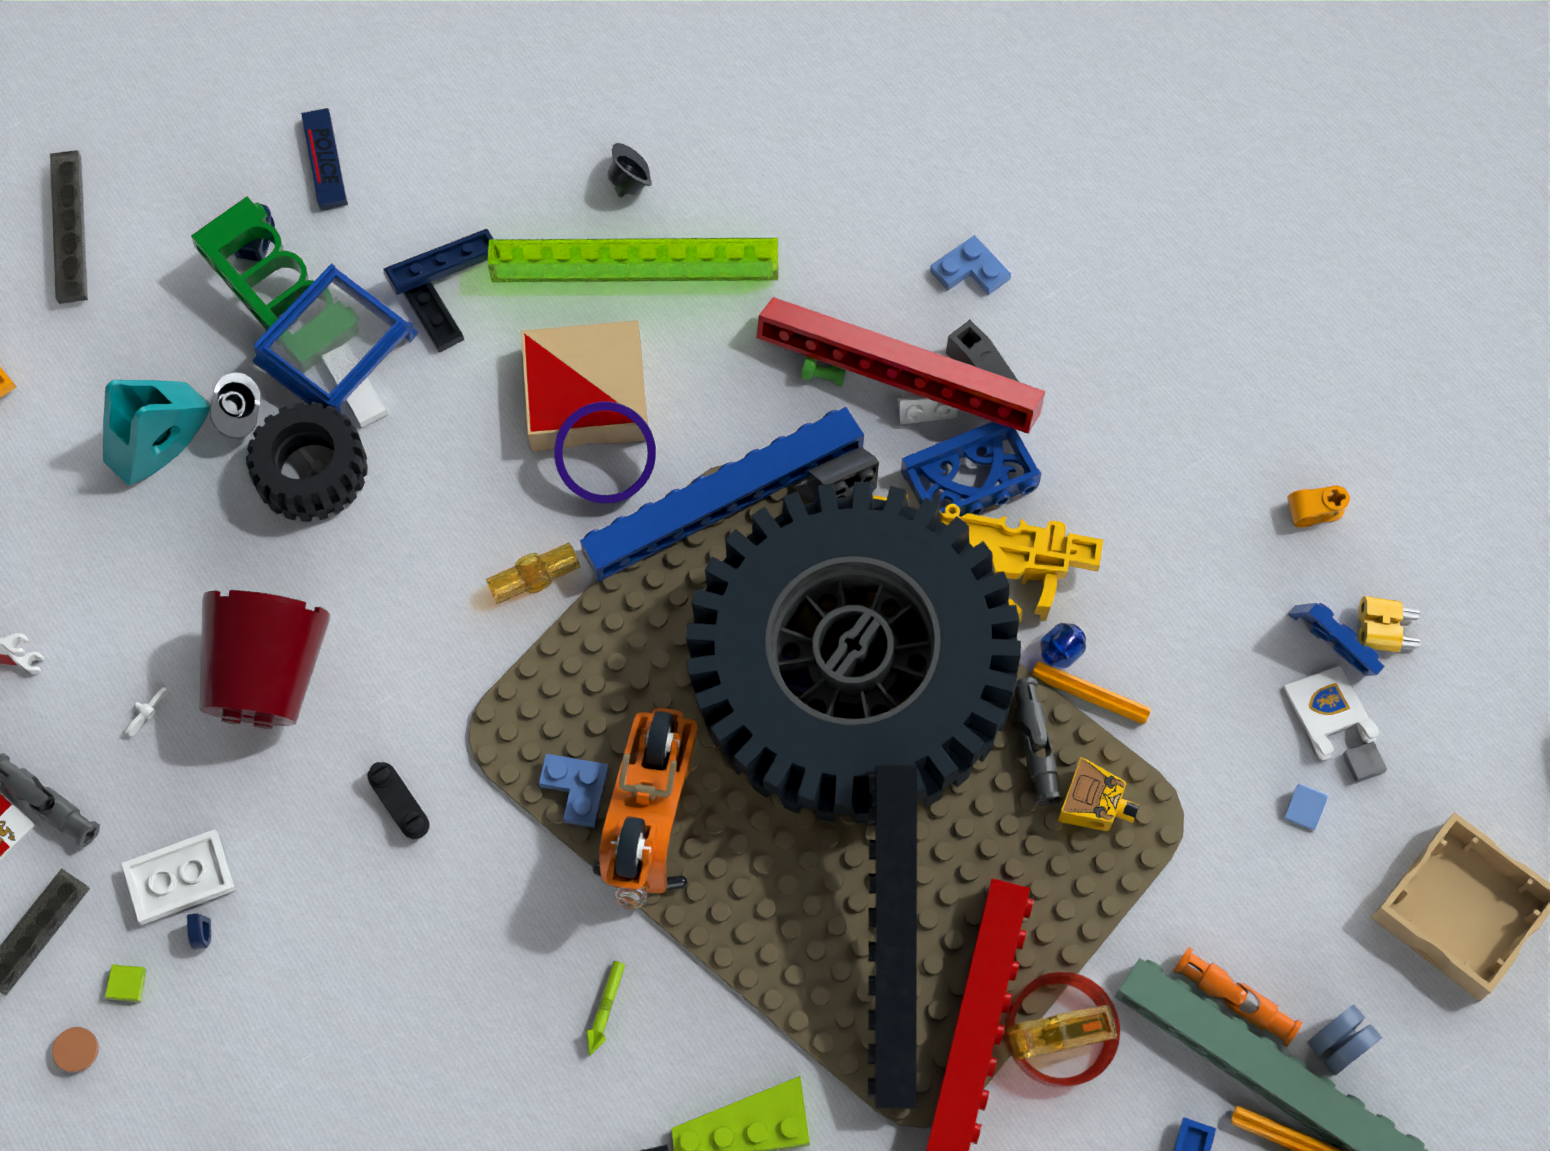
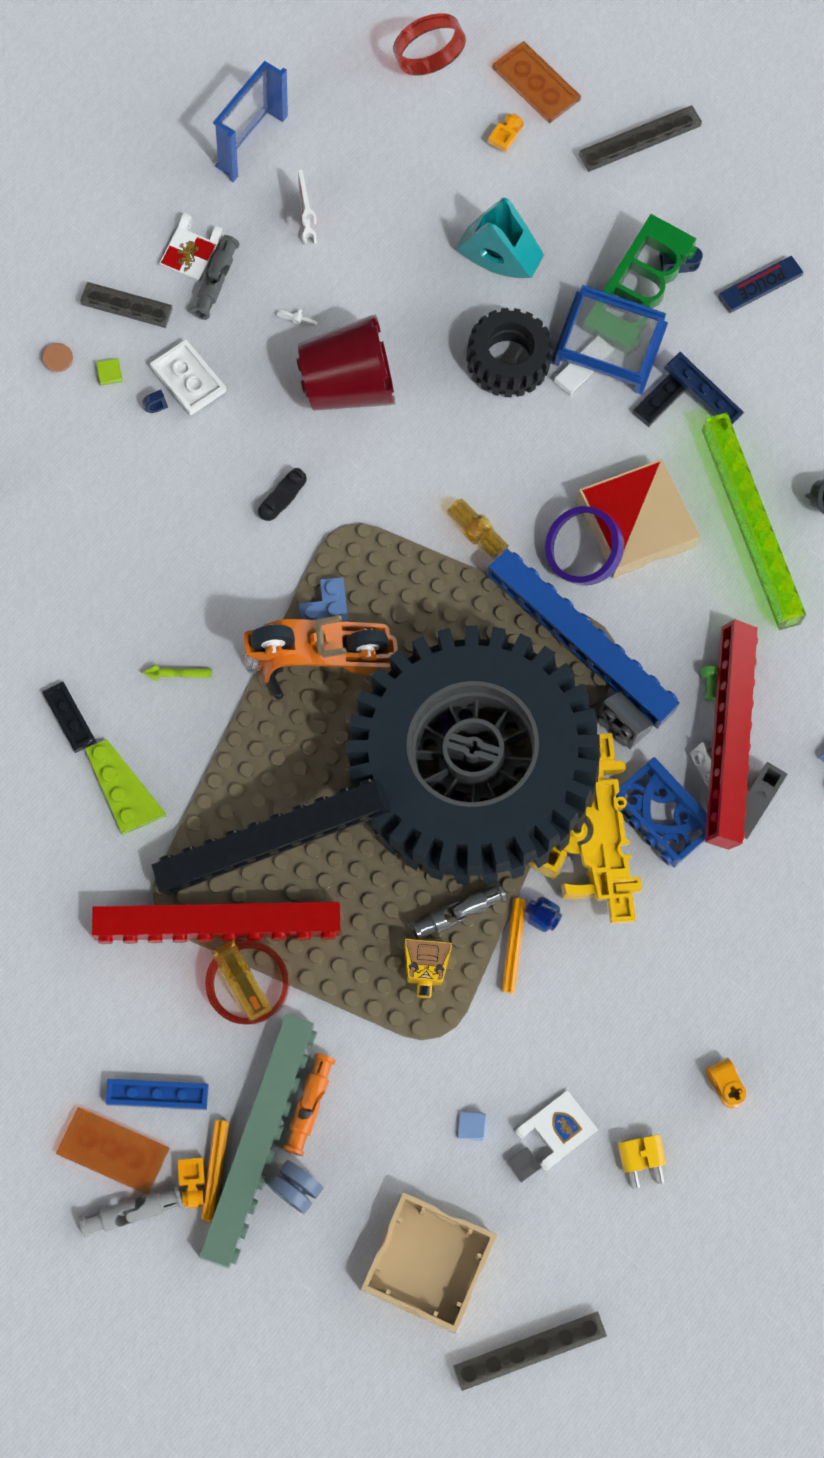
camera: 65 degrees right, 5 degrees up
(235, 405) = (535, 291): piece -> none
(1328, 629) = (616, 1120): blue wing -> none

